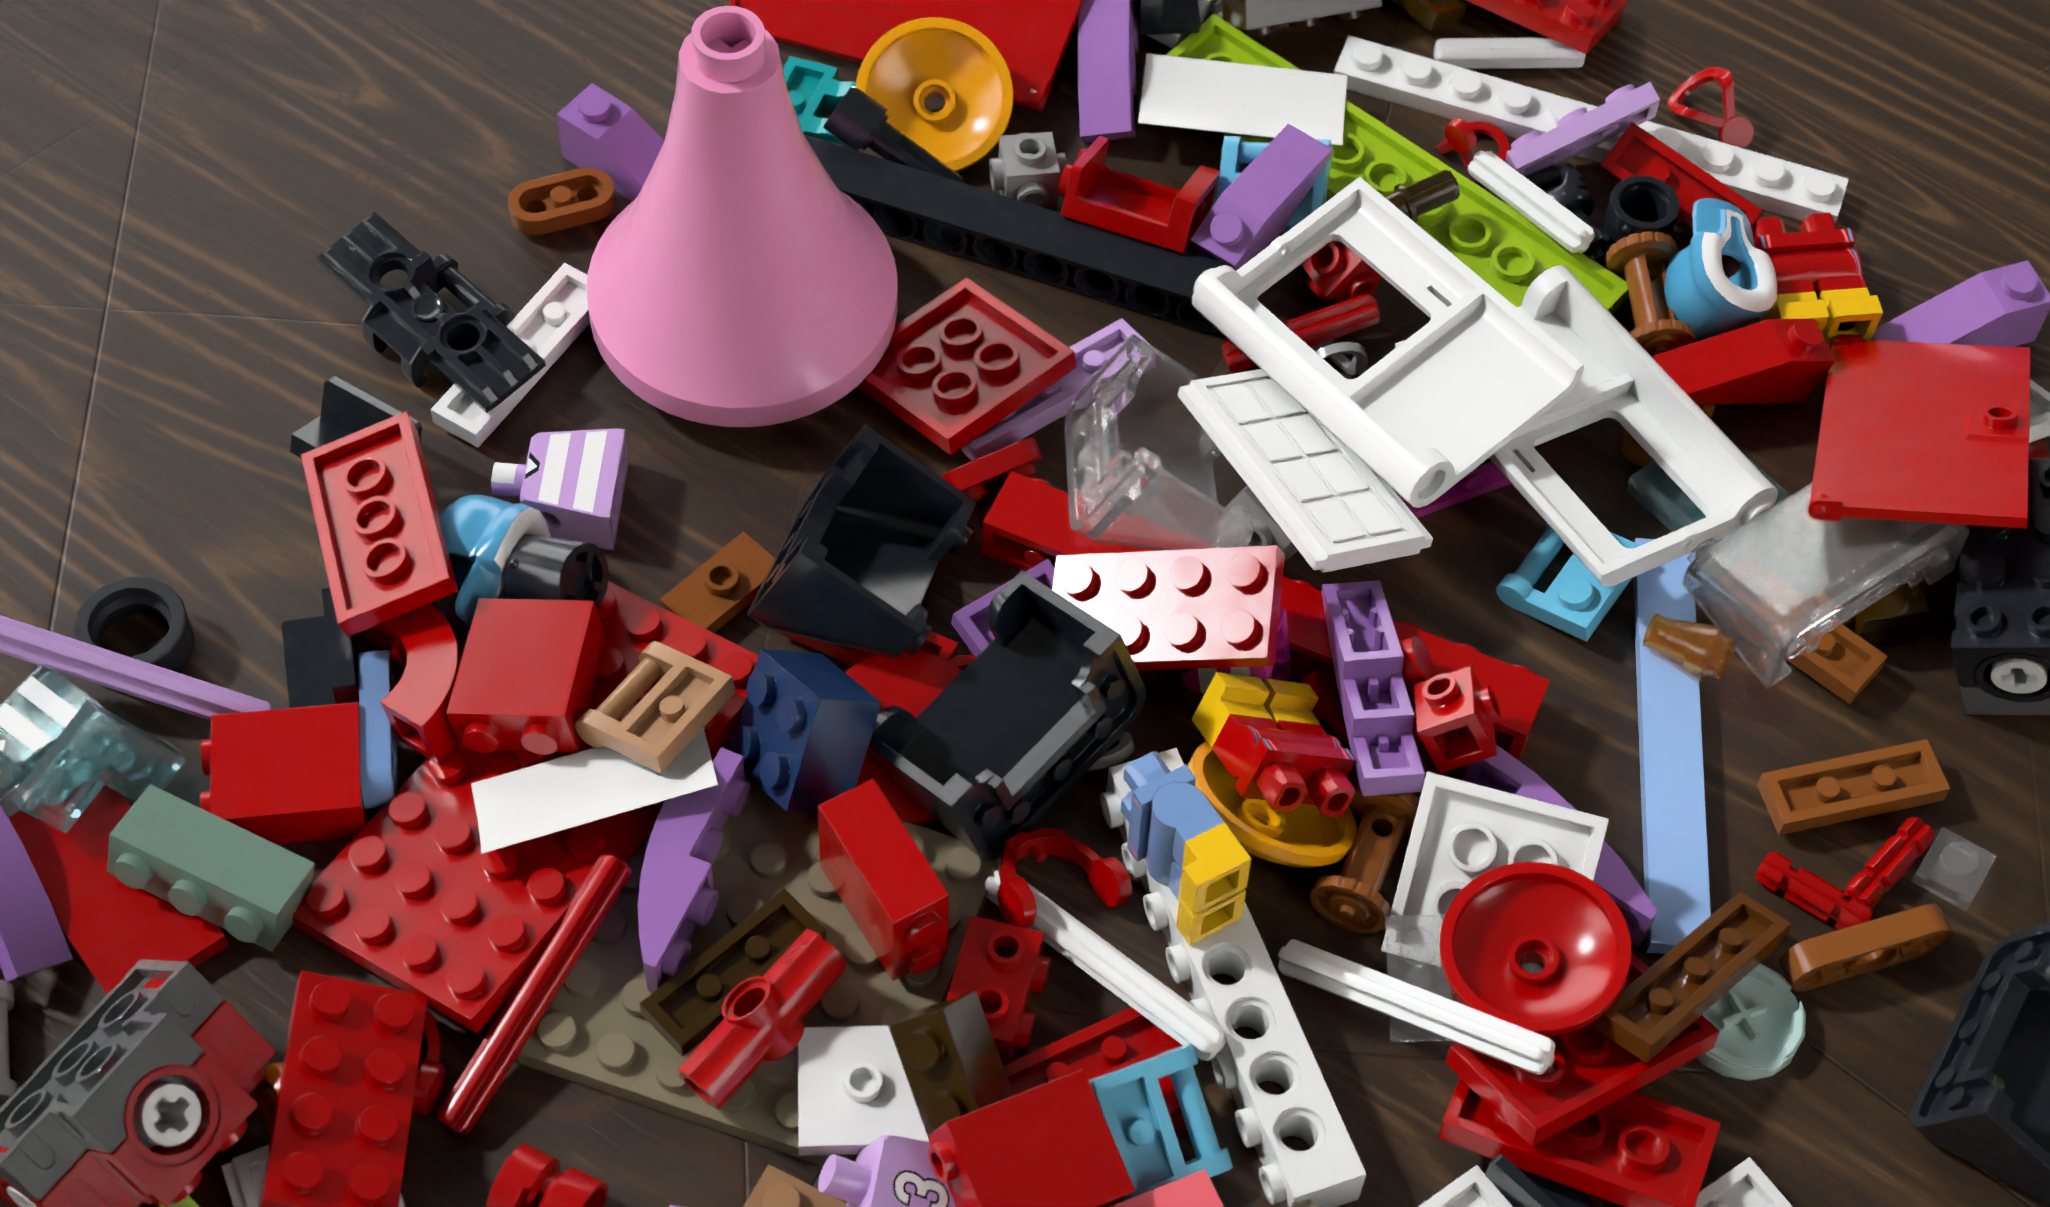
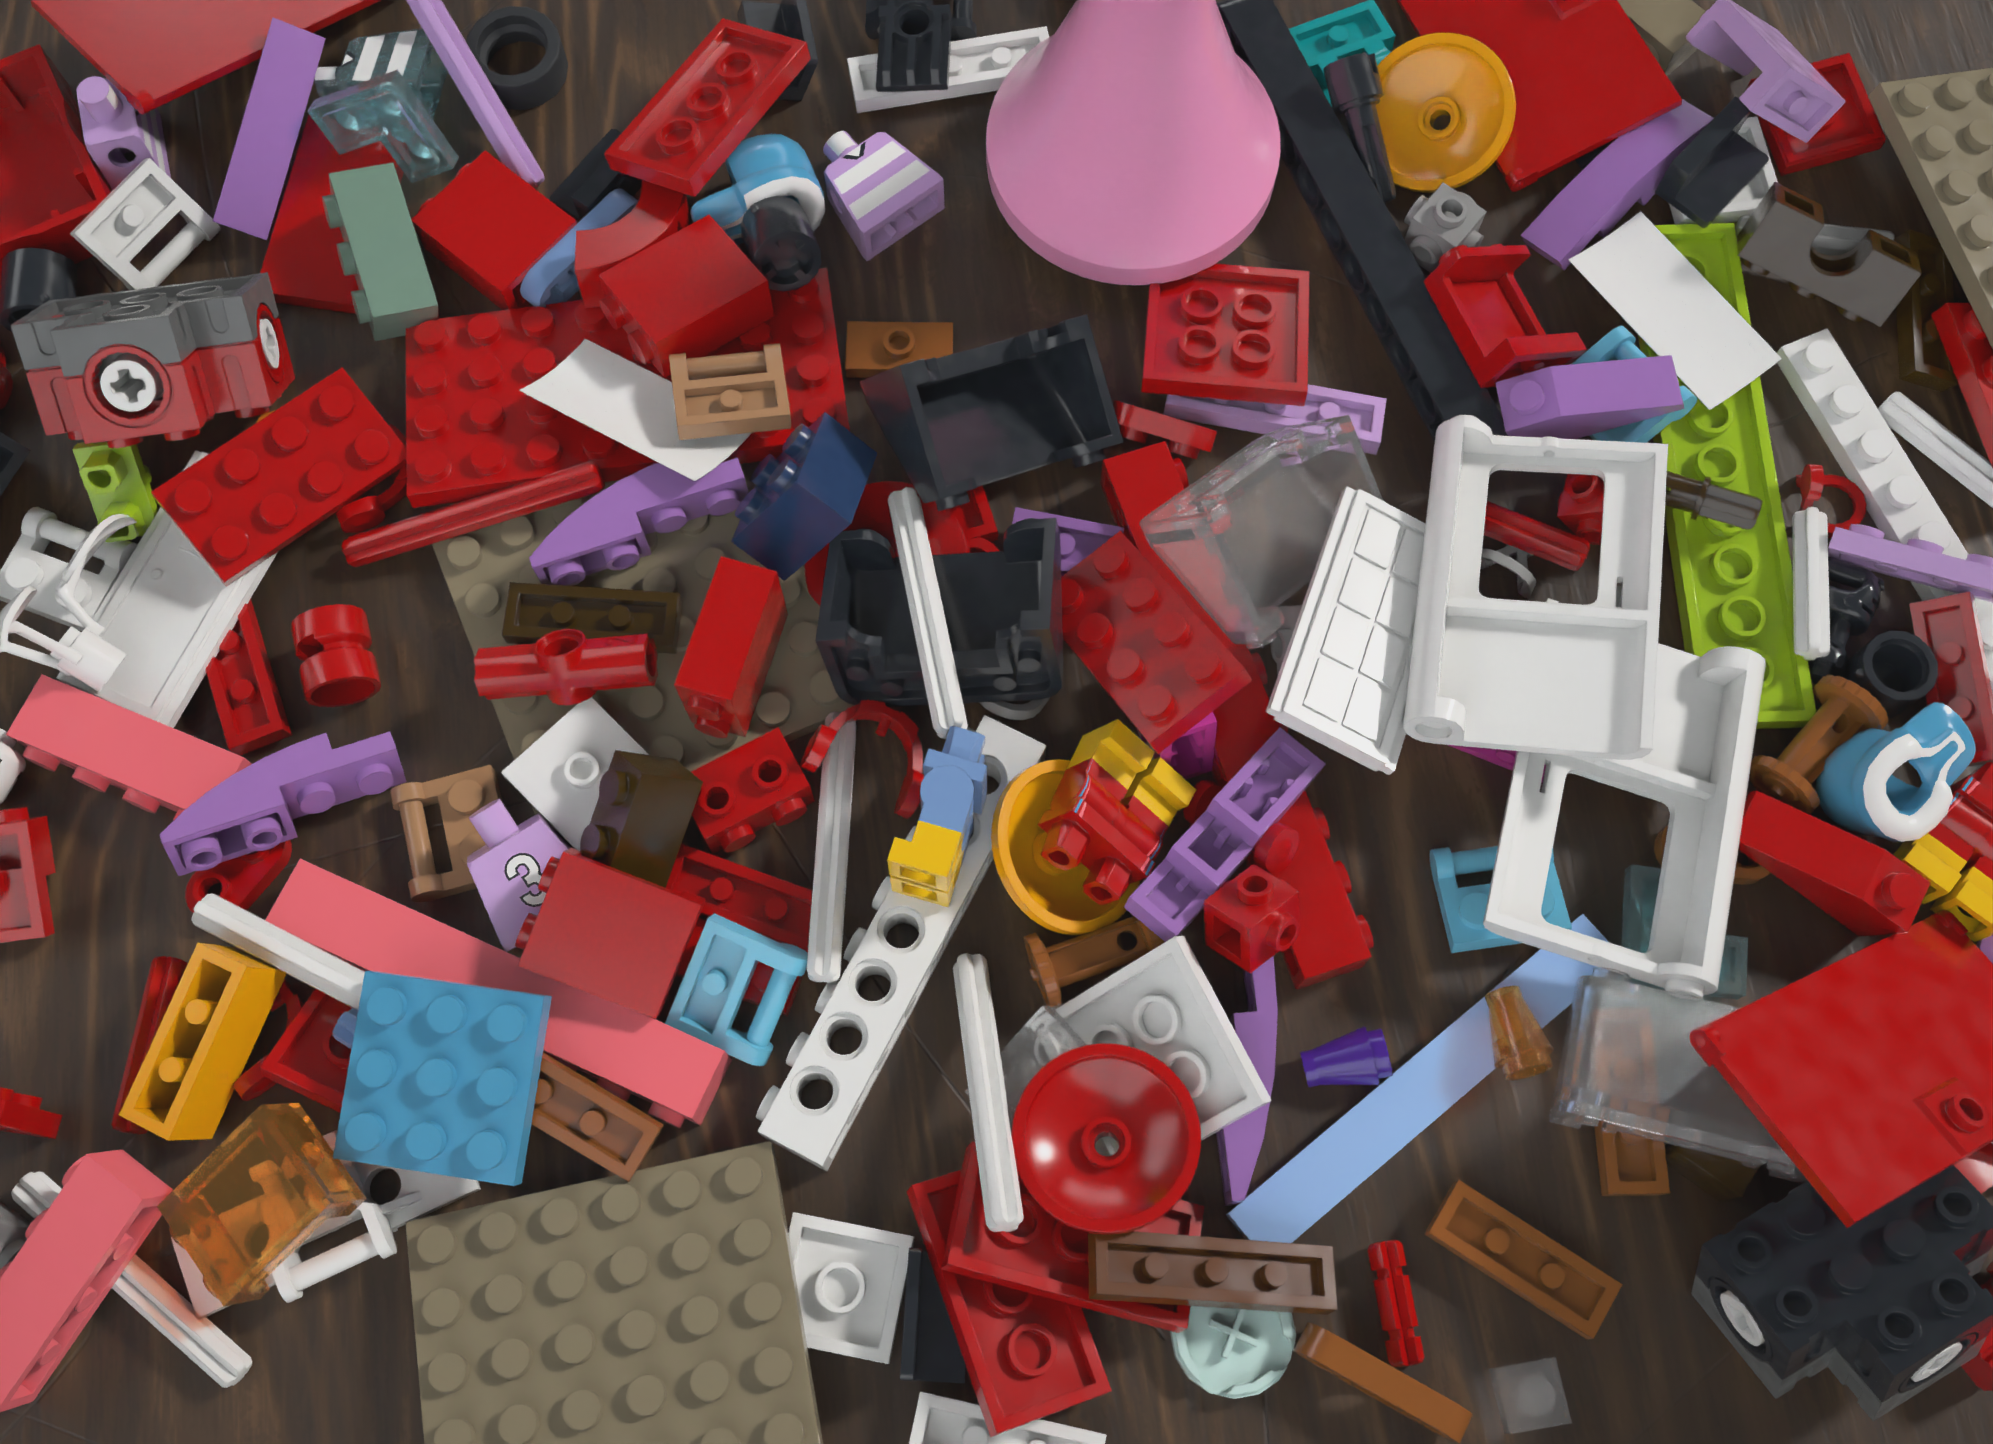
camera: 50 degrees right, 15 degrees up
(996, 724) = (927, 612): none -> white axle
(1608, 767) = (1348, 1060): none -> dark purple cone
(1890, 862) = (1482, 1341): red axle -> none

